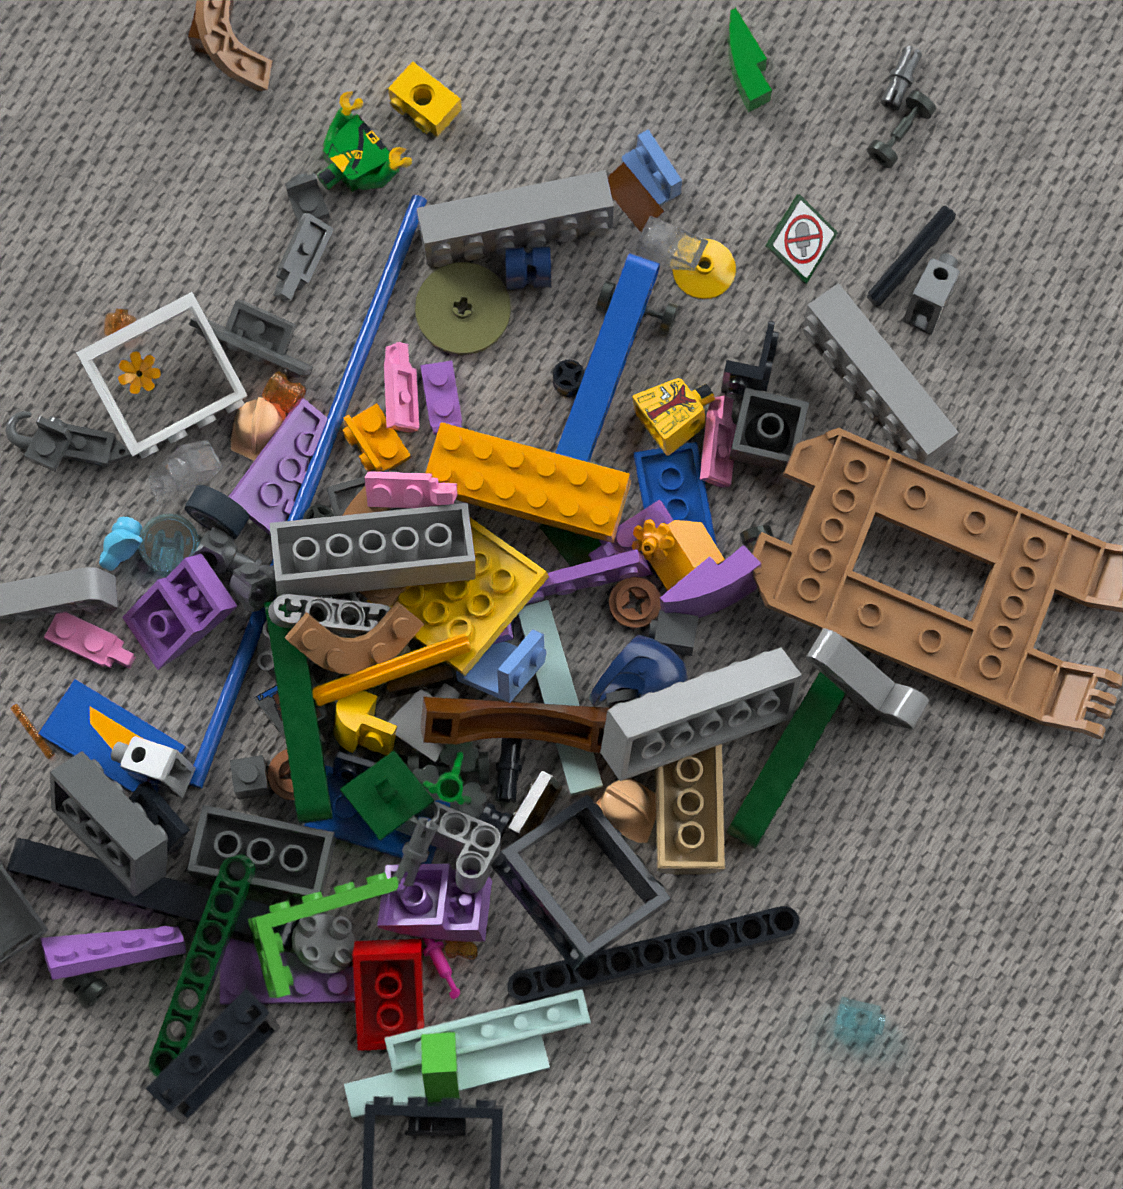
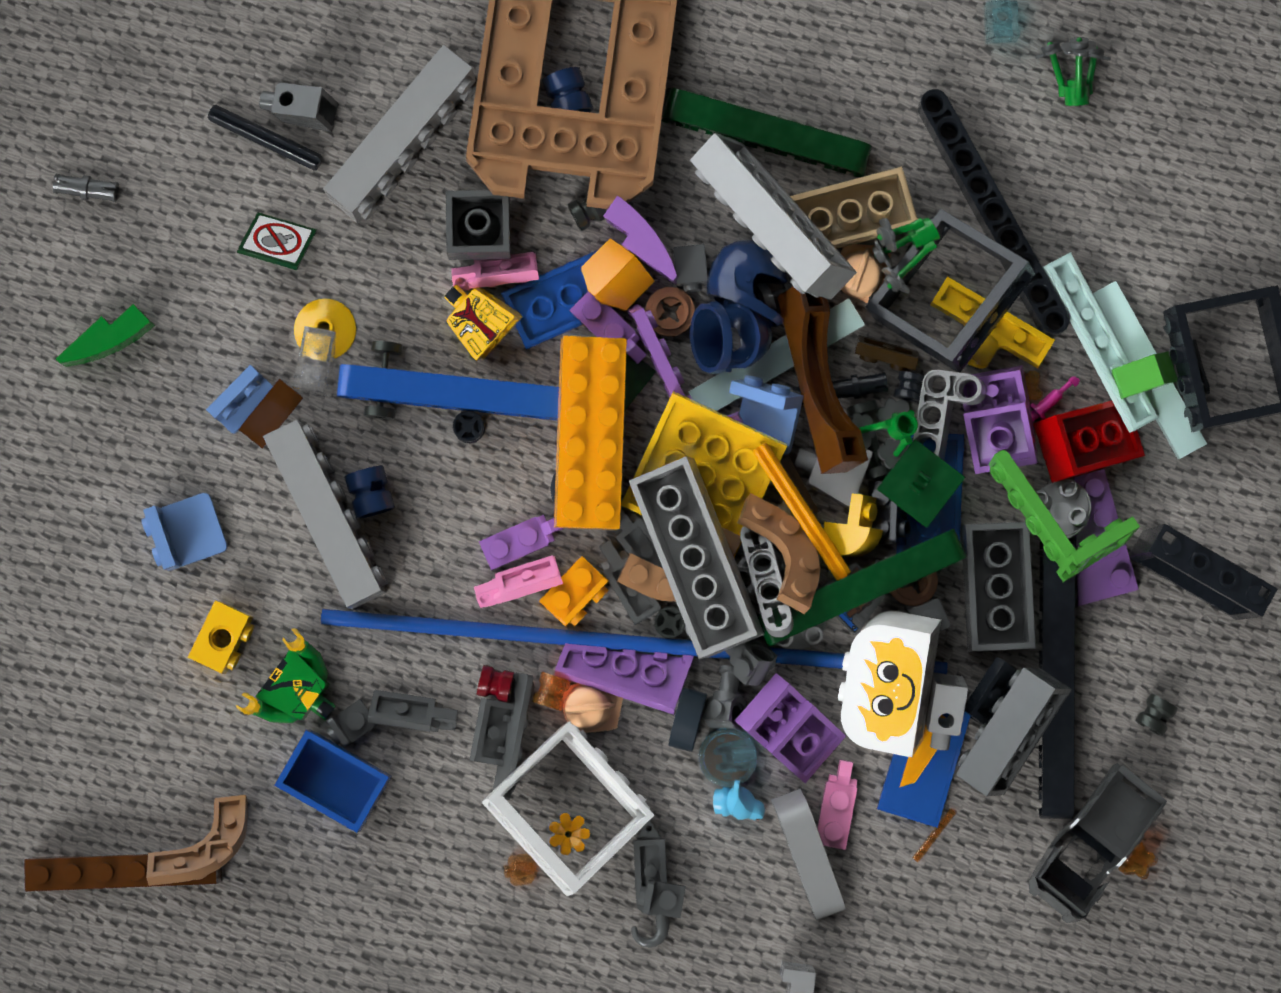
camera: 105 degrees left, 10 degrees up
(100, 951) = (1124, 708): medium lavender wing -> none
(183, 471) = (654, 763): clear slope -> none
(195, 709) = (889, 682): none -> white brick
(212, 952) = (1131, 607): dark green beam -> none
(255, 166) = (333, 780): none -> blue piece
(307, 341) = (495, 683): none -> dark red wheel
(407, 490) = (630, 539): bright pink hinge -> none
(415, 851) = (965, 443): dark grey pin -> none
(477, 327) = (441, 562): olive piece -> none
(524, 934) = (1008, 334): none -> yellow plate
(536, 88) = (184, 532): none -> medium blue bracket
(586, 631) = (713, 340): none -> dark blue piece
(646, 863) = (920, 233): none -> plant
(652, 540) = (614, 305): light orange plant -> none
(740, 376) = (423, 243): black bracket -> none
(765, 1079) = (1077, 88): none -> green plant
(865, 682) = (700, 75): light grey beam -> none
(885, 554) = (566, 90): none -> dark blue wheel
(920, 105) = (111, 162): pearl dark grey wheel -> none

